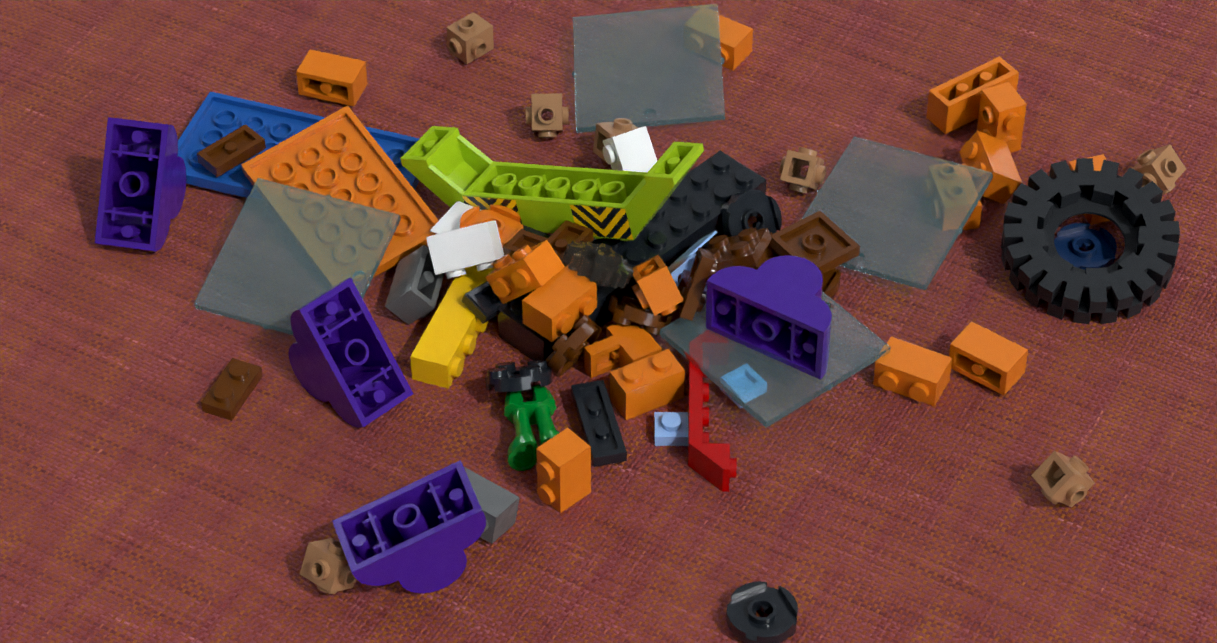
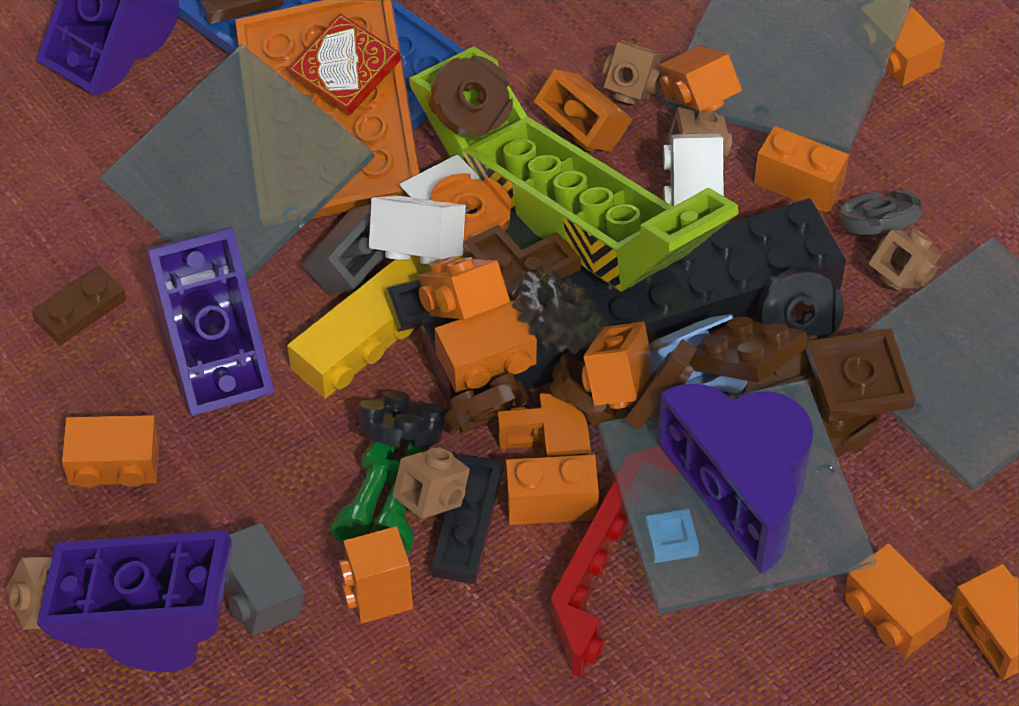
camera: 25 degrees right, 10 degrees up
(322, 464) = (111, 450): none -> orange brick
(345, 166) = (344, 64): none -> tile
(442, 162) = (456, 112): none -> reddish brown plate
(524, 147) = (582, 111): none -> orange brick
(568, 401) = (431, 482): none -> medium nougat brick
(602, 99) = (700, 78): none -> orange brick
(671, 428) = (550, 558): light blue plate -> none
(705, 129) = (801, 168): none -> orange brick
(770, 148) = (877, 215): none -> dark grey tile

